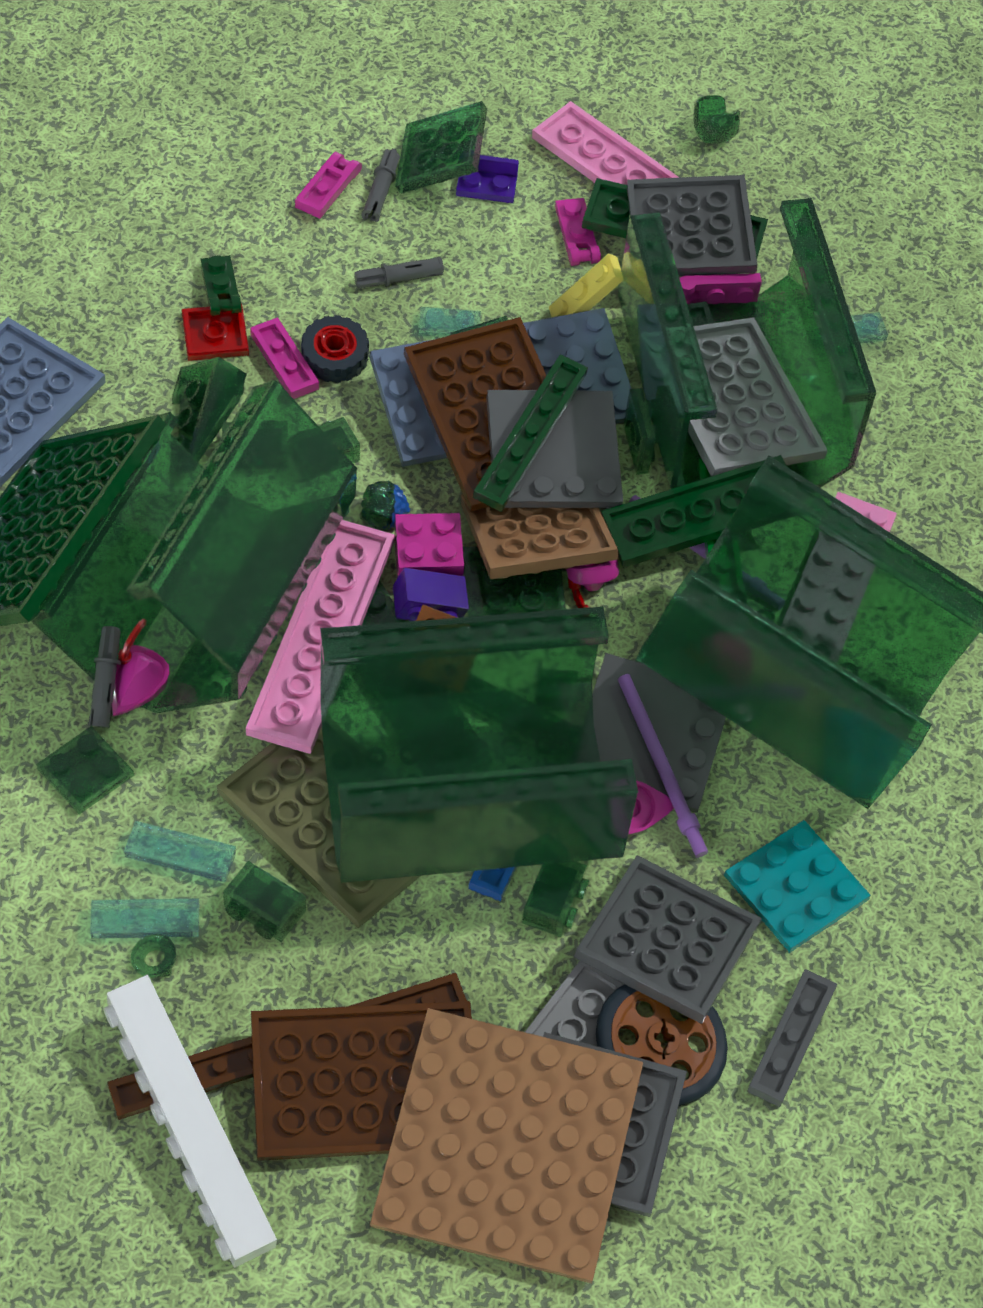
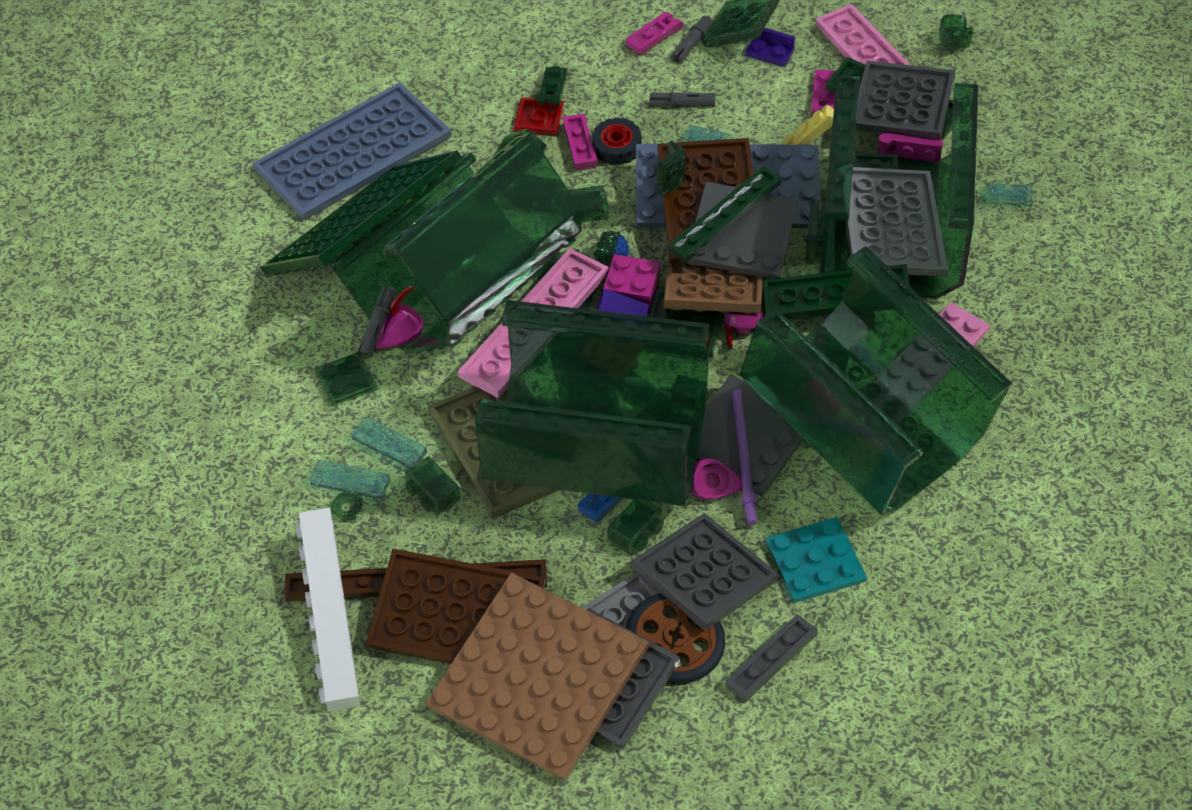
camera: 25 degrees right, 5 degrees down
(444, 381) = (671, 169): none -> clear green bracket

